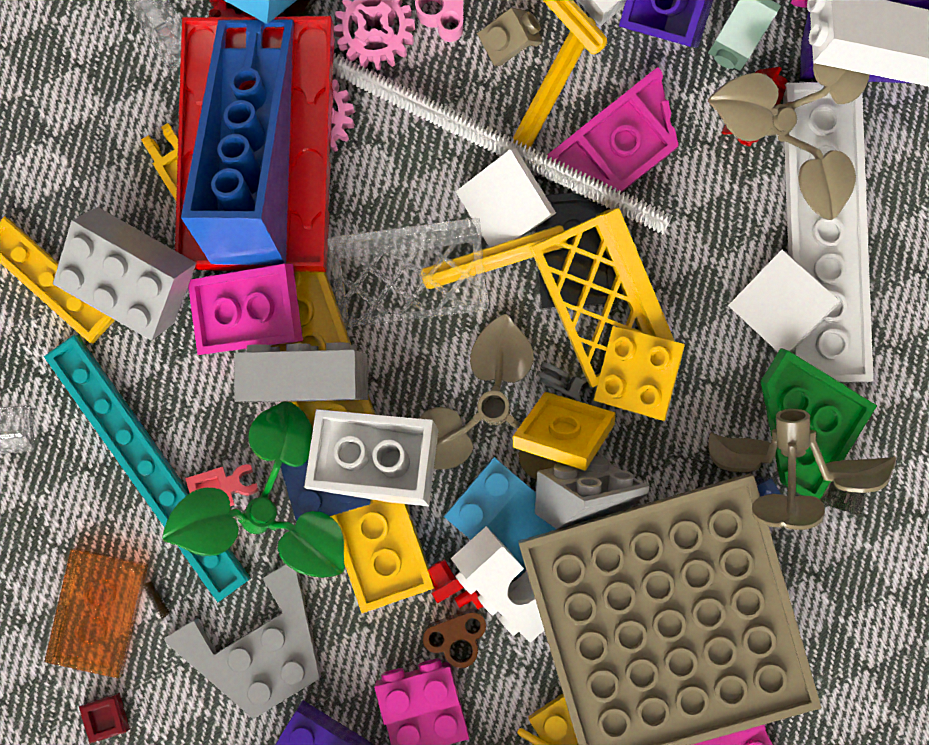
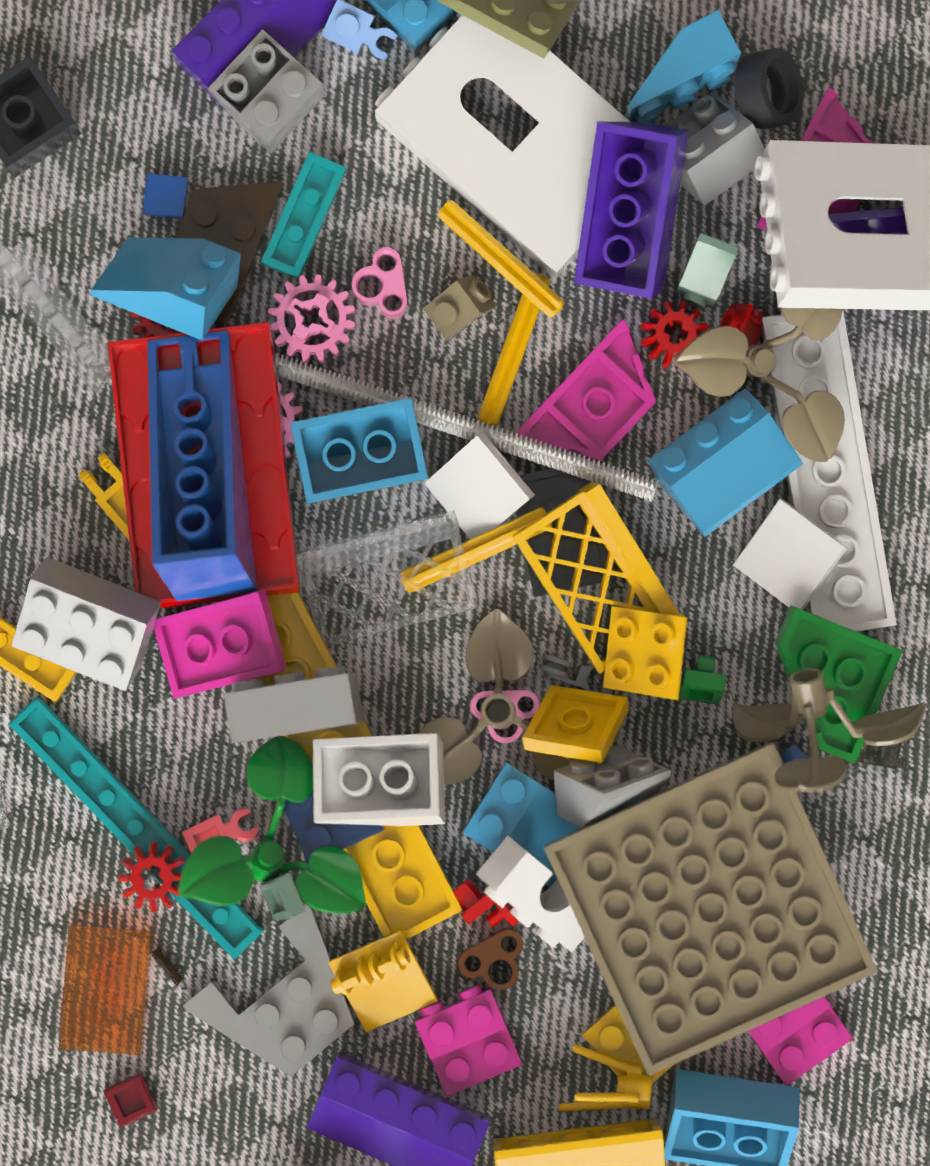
camera: 15 degrees left, 0 degrees up
(138, 516) = (140, 879): none -> red gear
(267, 553) = (282, 897): none -> sand green tile
(350, 643) = (382, 981): none -> yellow hinge
(398, 150) = (359, 450): none -> dark azure slope
(511, 396) = (514, 695): none -> bright pink piece
(686, 410) = (702, 683): none -> green tile
(689, 85) = (661, 322): none -> red gear
(736, 208) = (724, 462): none -> dark azure slope

